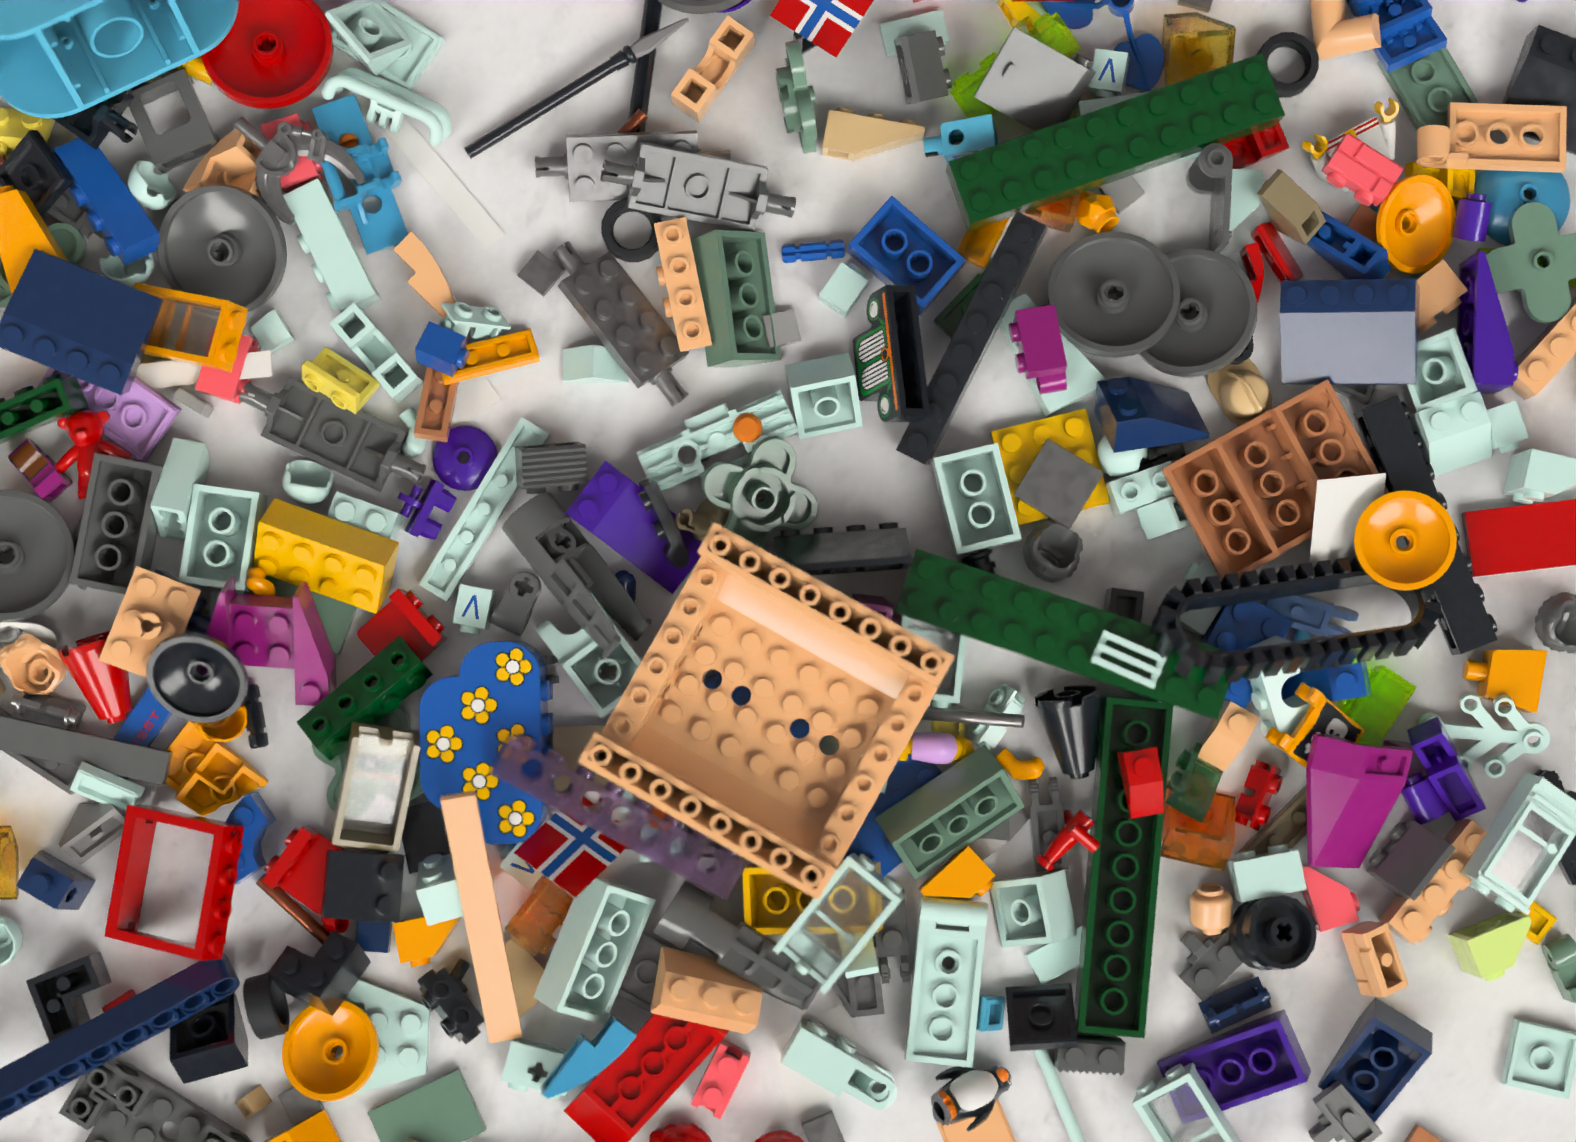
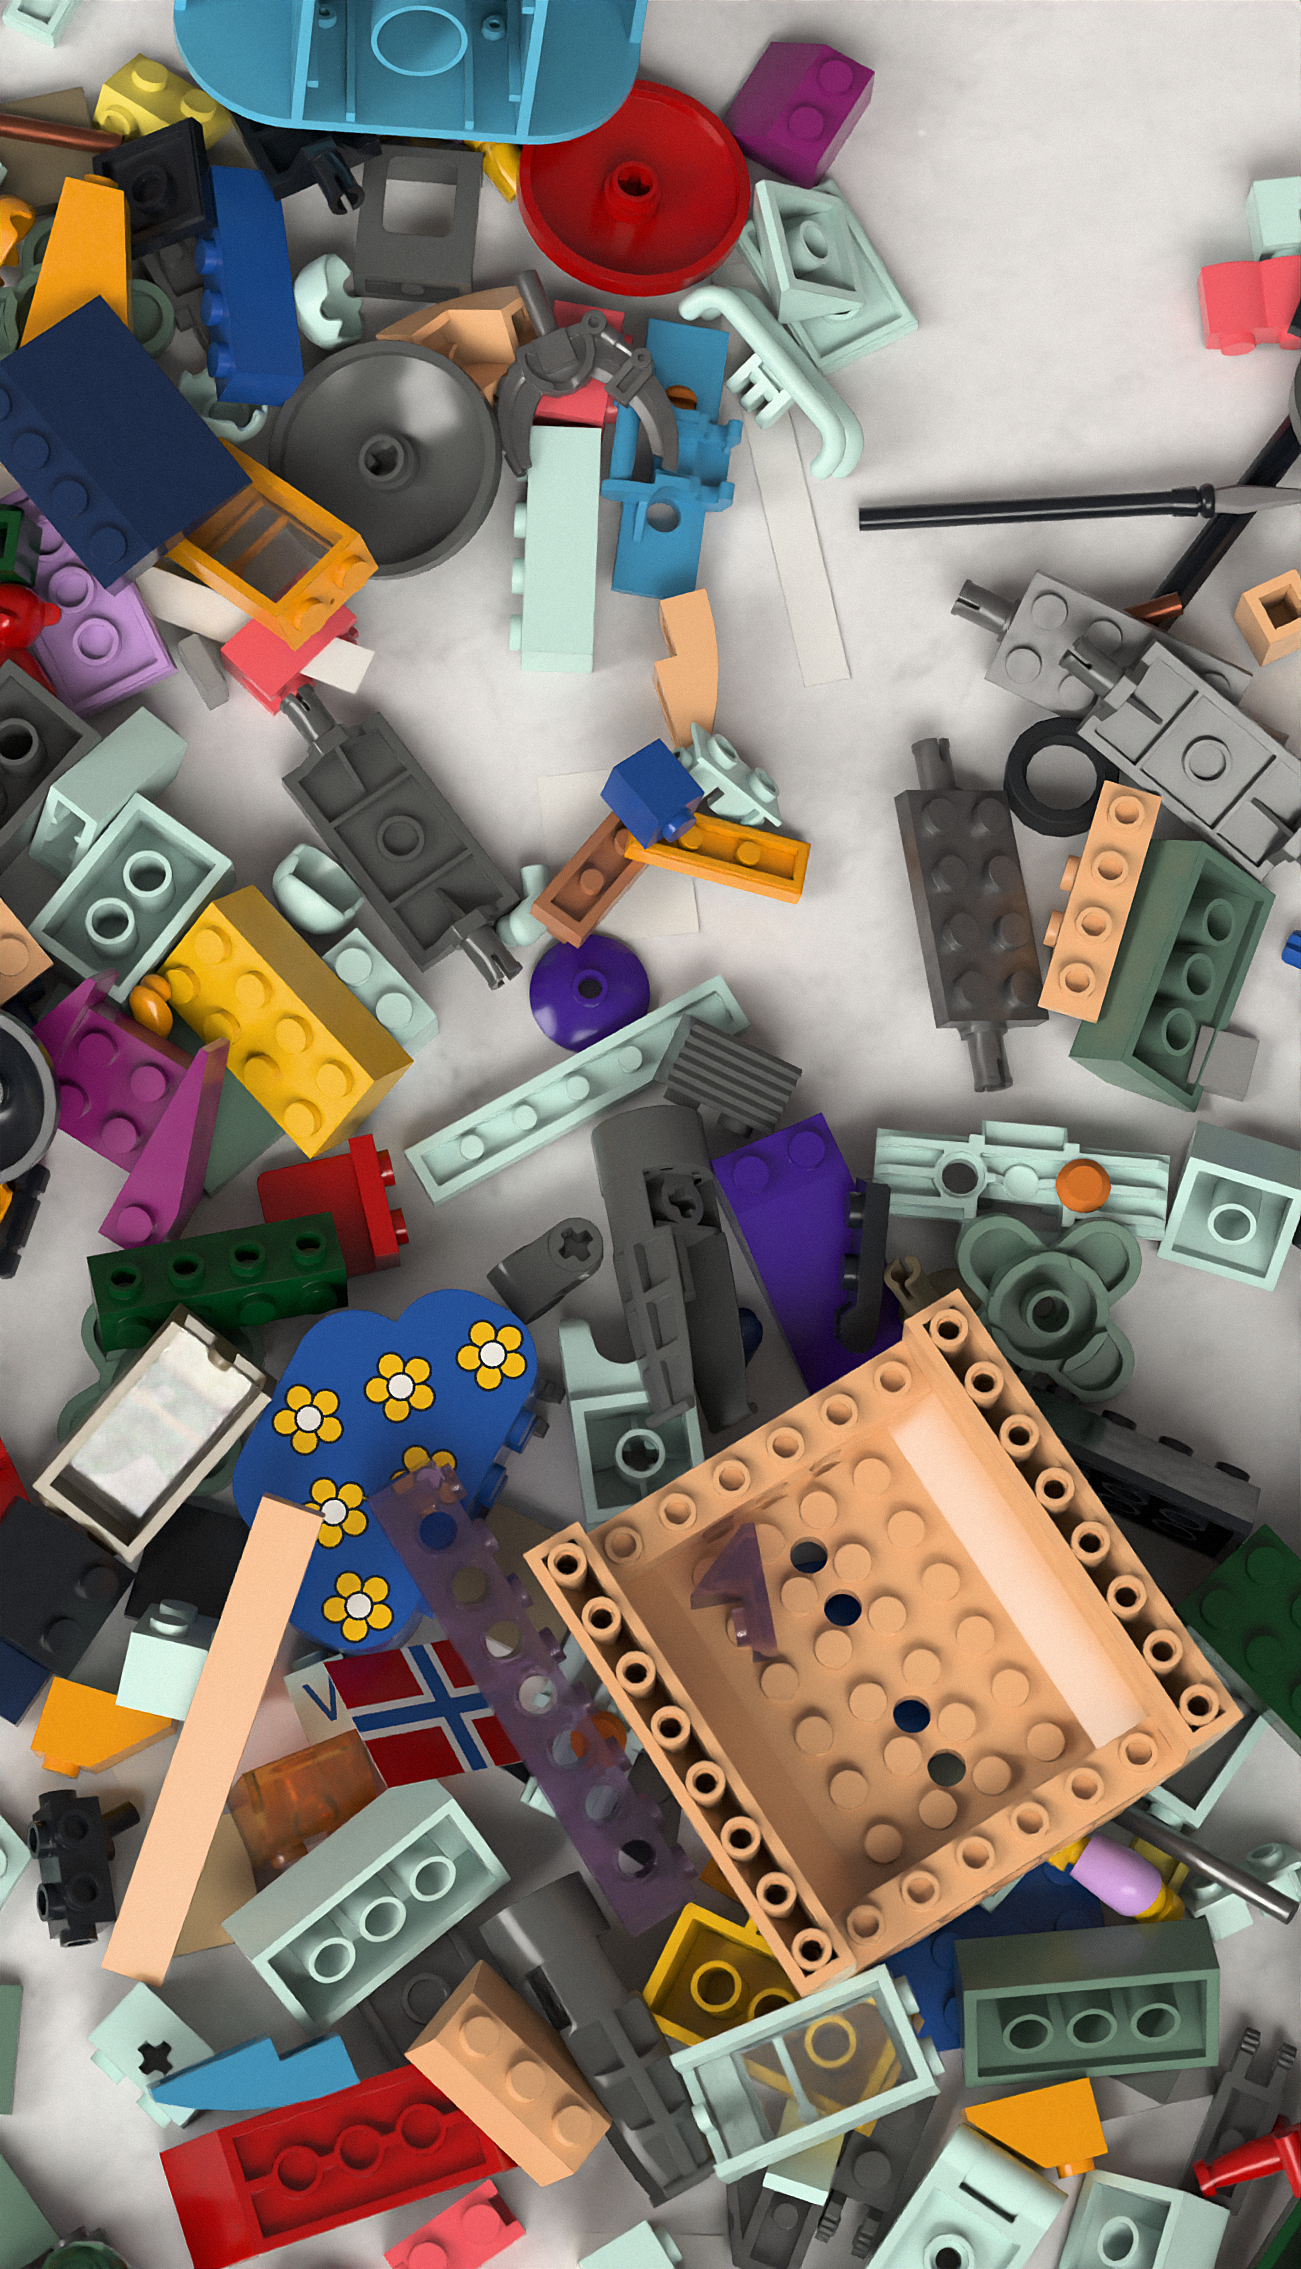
camera: 25 degrees right, 10 degrees down
(272, 332) = (390, 629): light aqua slope -> none
(339, 380) = (457, 760): light yellow bracket -> none
(376, 352) = (541, 748): light aqua arch -> none
(433, 496) = (461, 1054): dark purple hips -> none
(474, 608) = (472, 1239): light aqua brick -> none
(540, 273) = (874, 767): flat silver tile -> none
(591, 365) = (879, 954): light aqua slope -> none
(686, 710) = (740, 1577): none -> slope
(1020, 769) = (1245, 2003): light orange arm -> none

